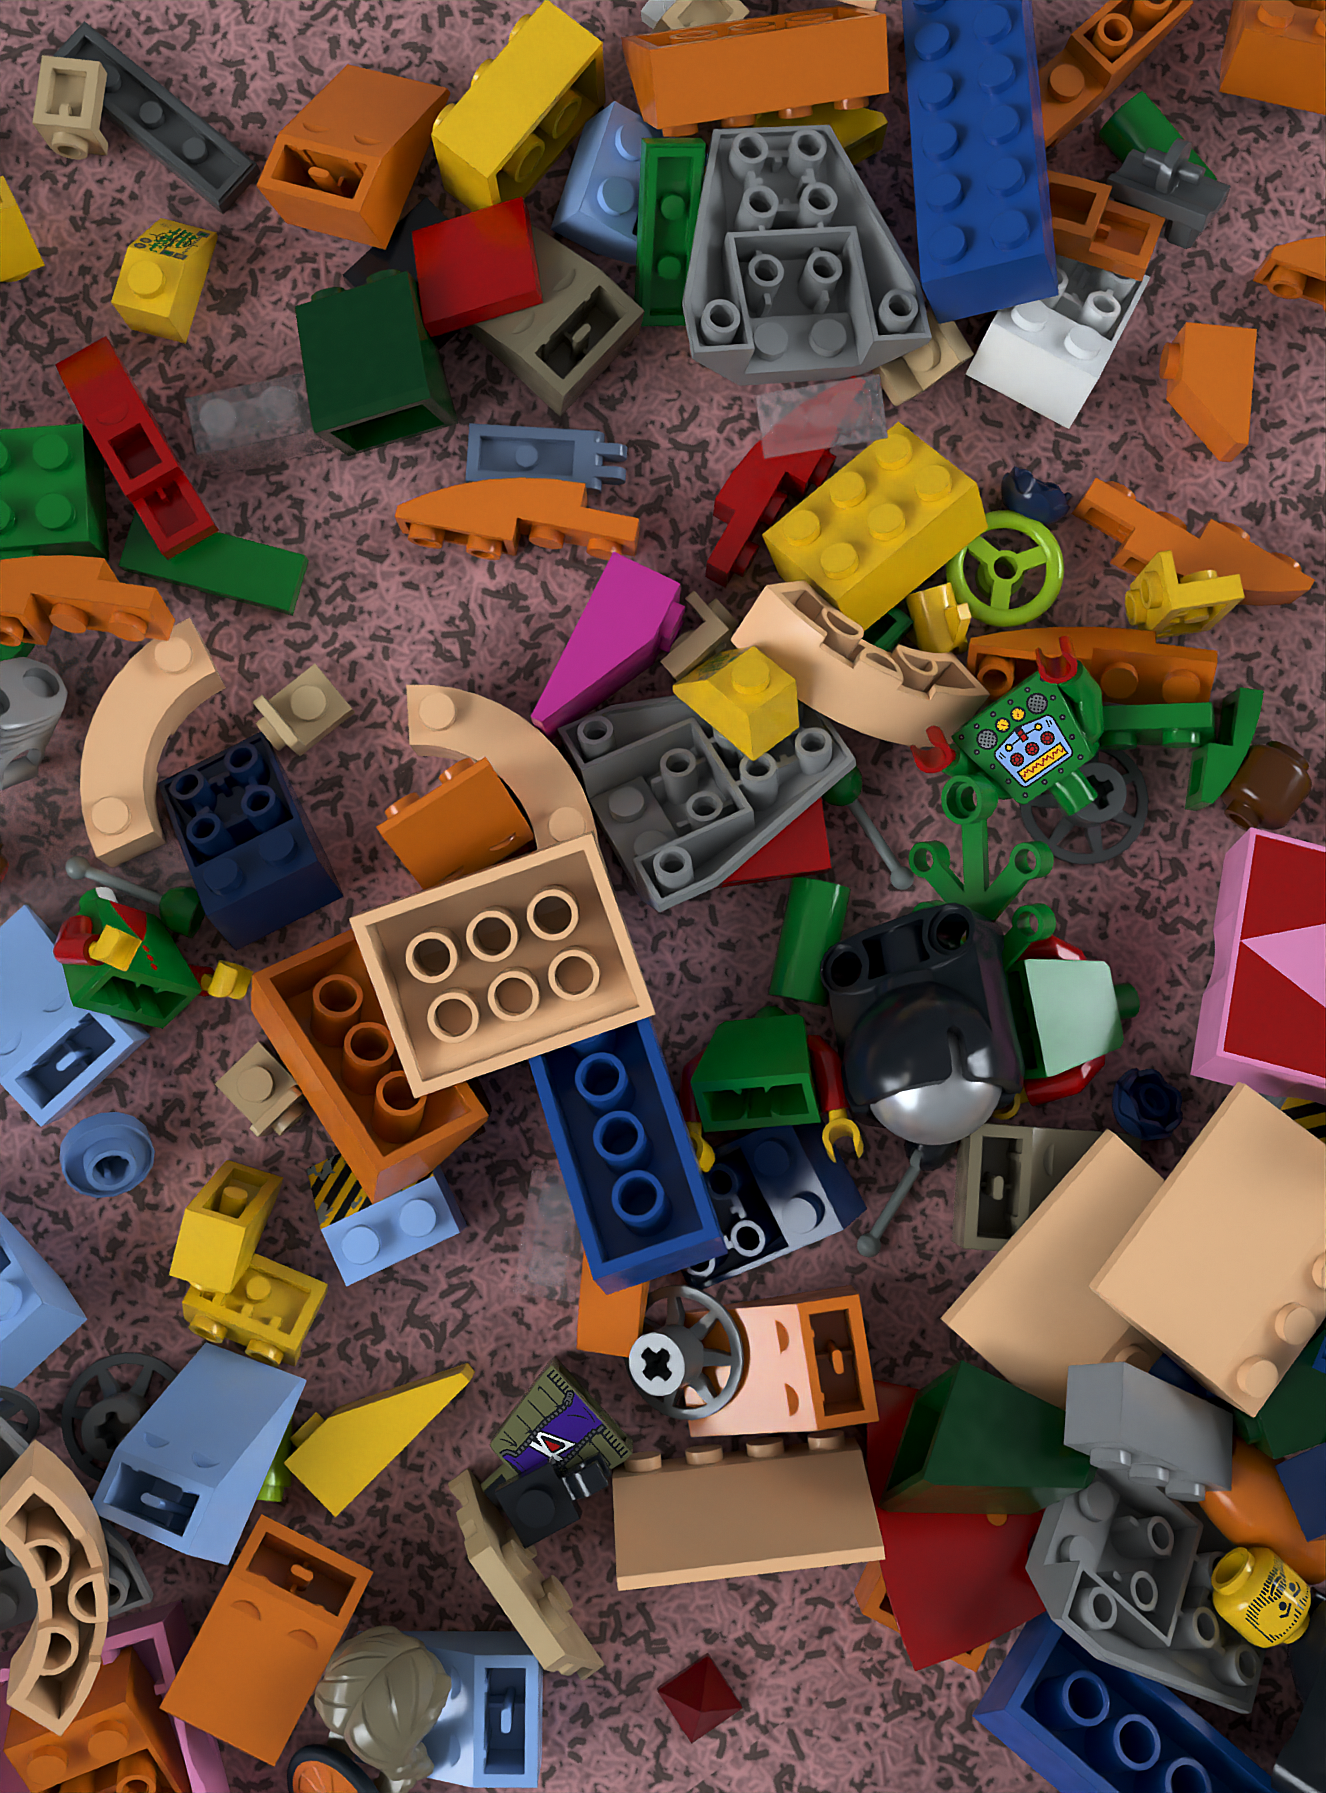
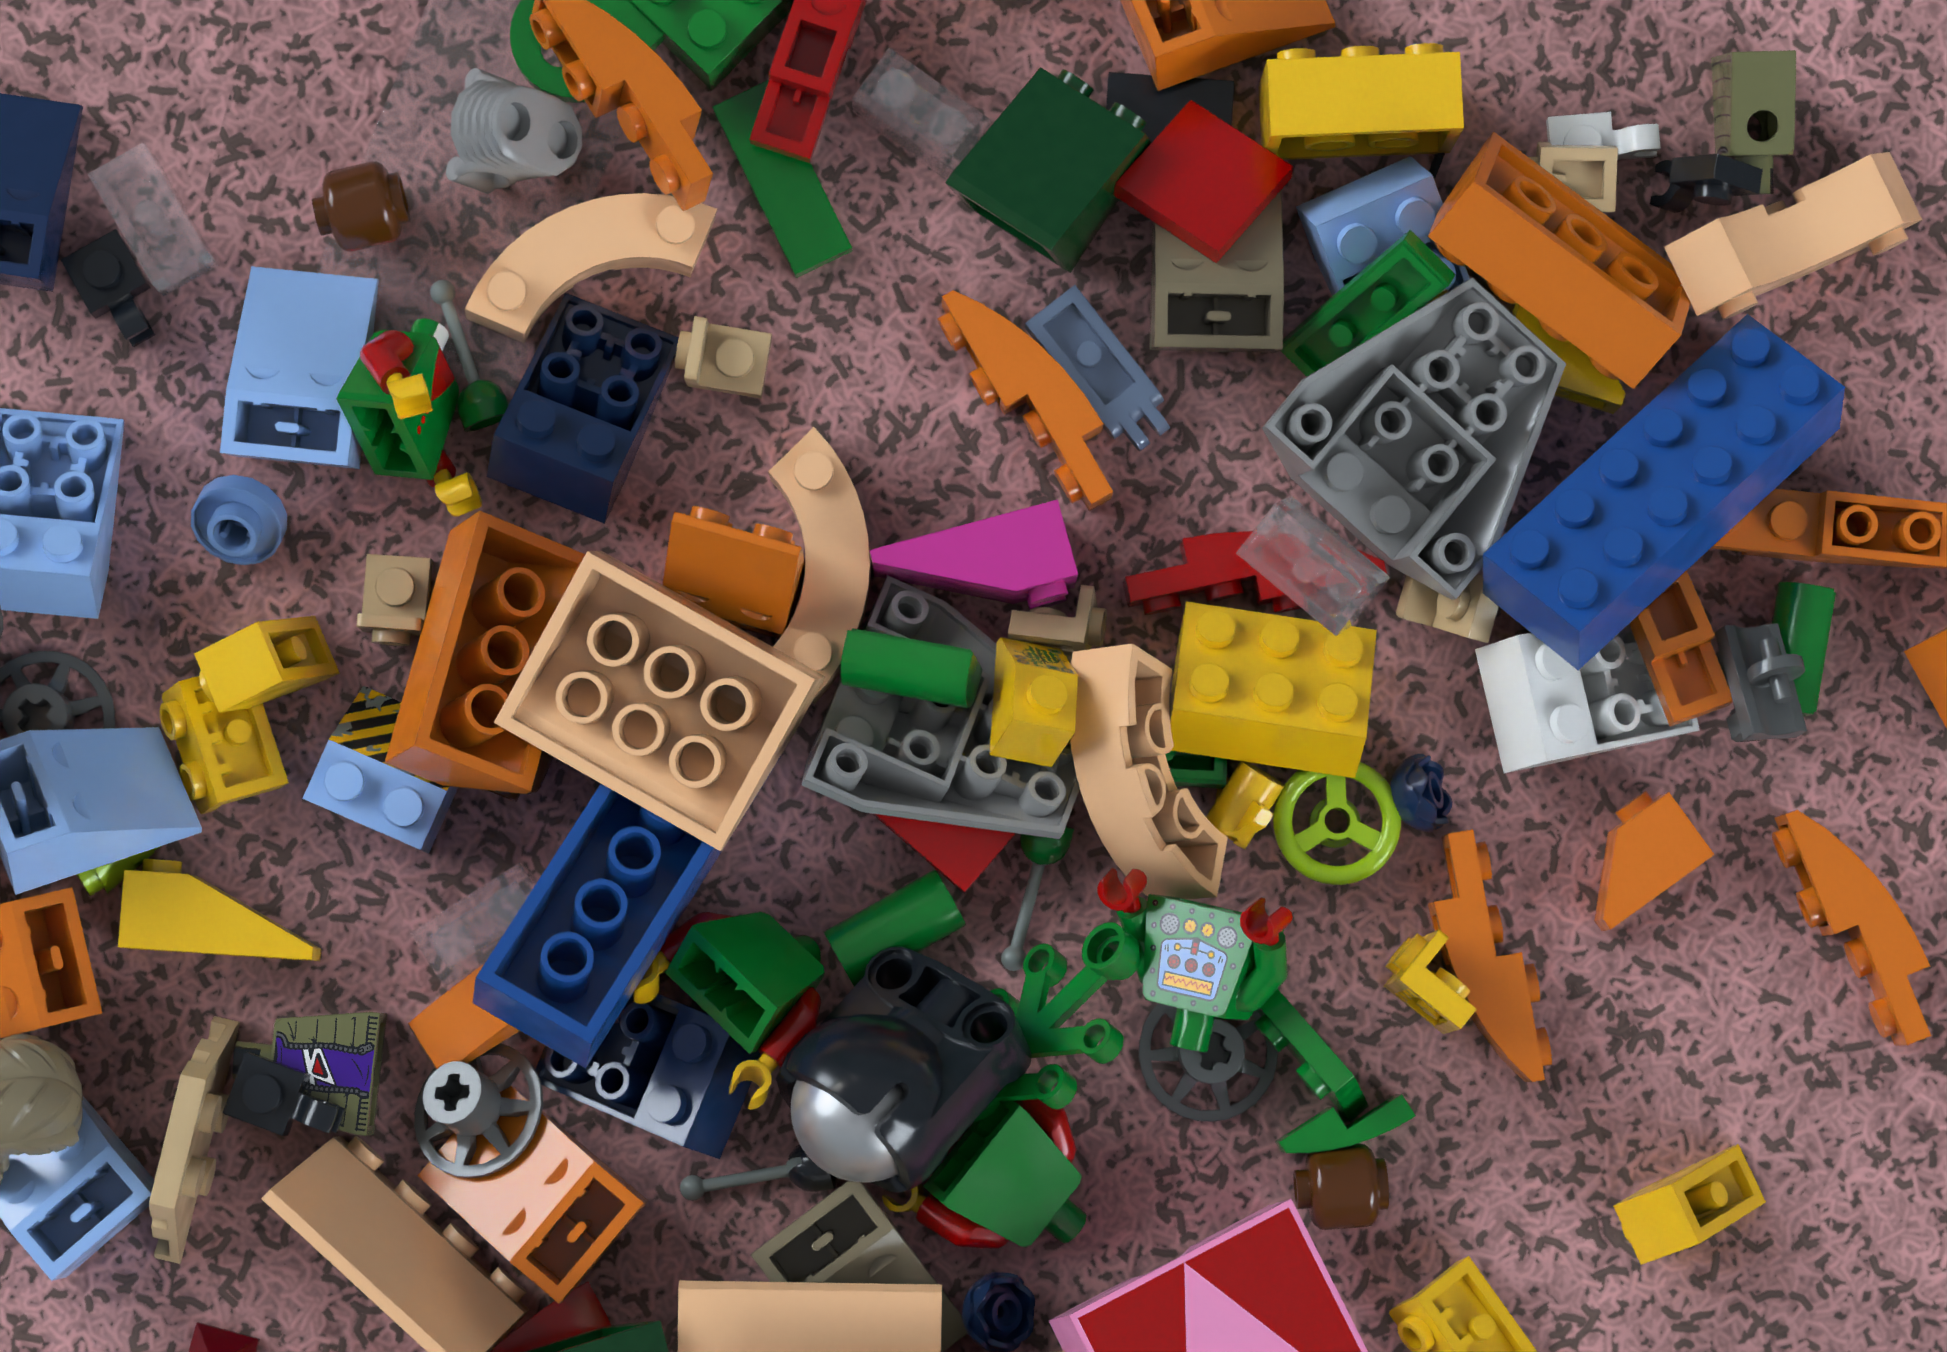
camera: 45 degrees right, 0 degrees up
(639, 764) = (910, 668): none -> green brick
(1121, 661) = (1323, 963): orange slope -> none

